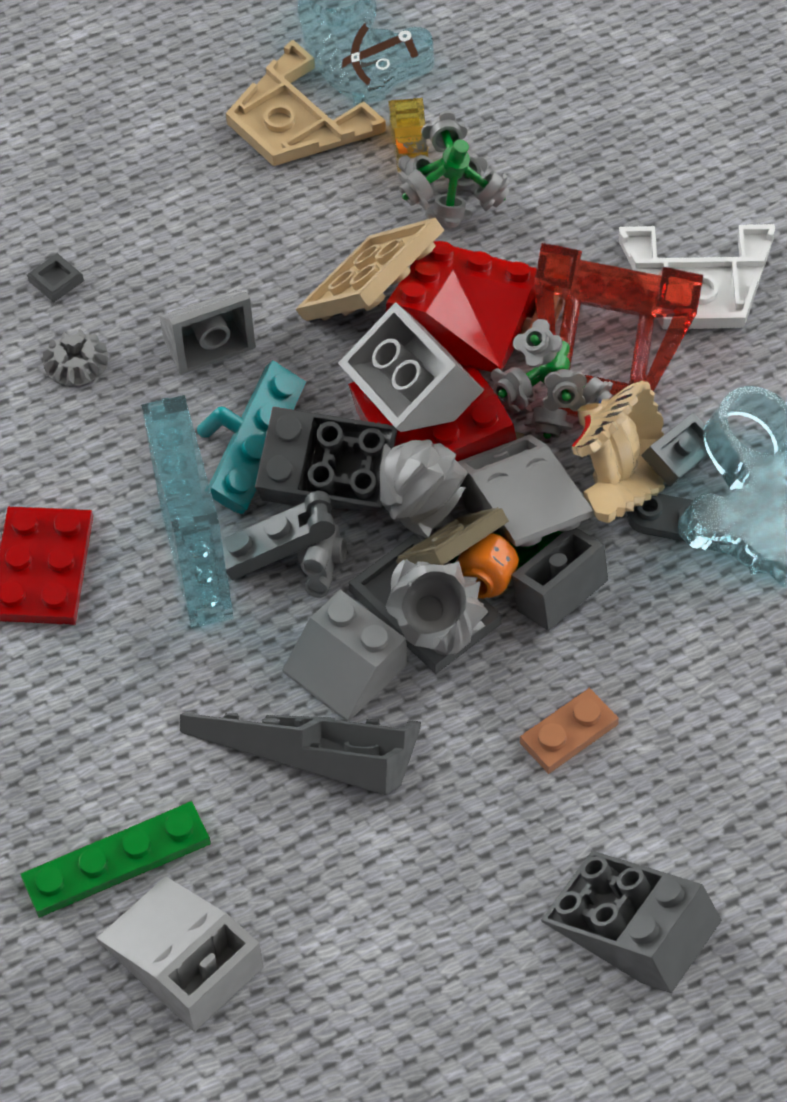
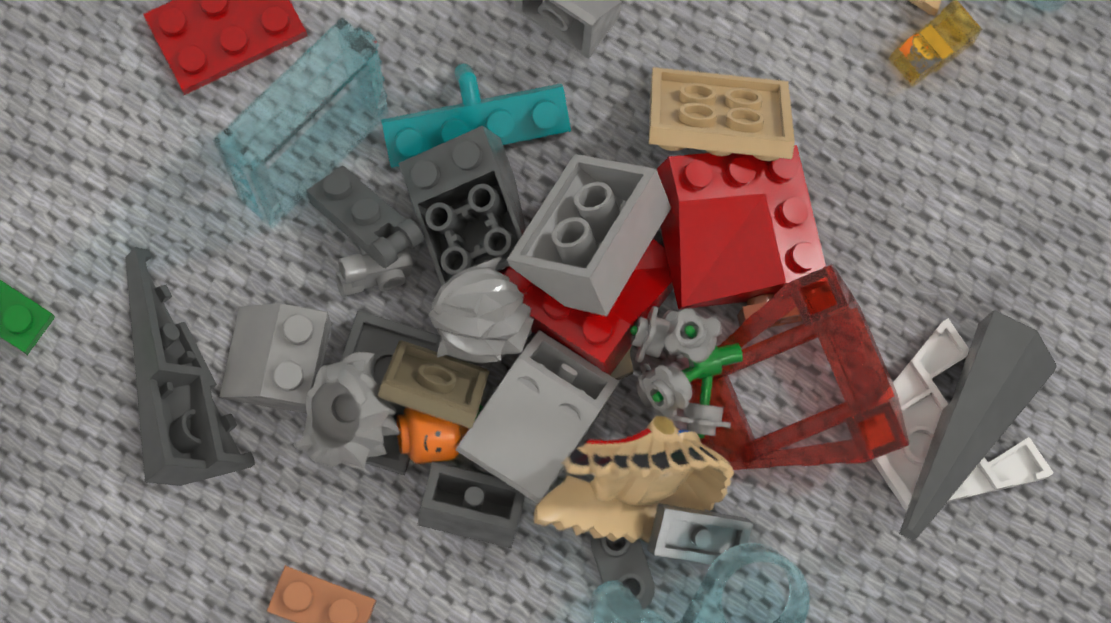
camera: 50 degrees right, 20 degrees up
(456, 165) = (918, 126): light grey plant -> none
(688, 221) = (996, 383): none -> dark grey wedge

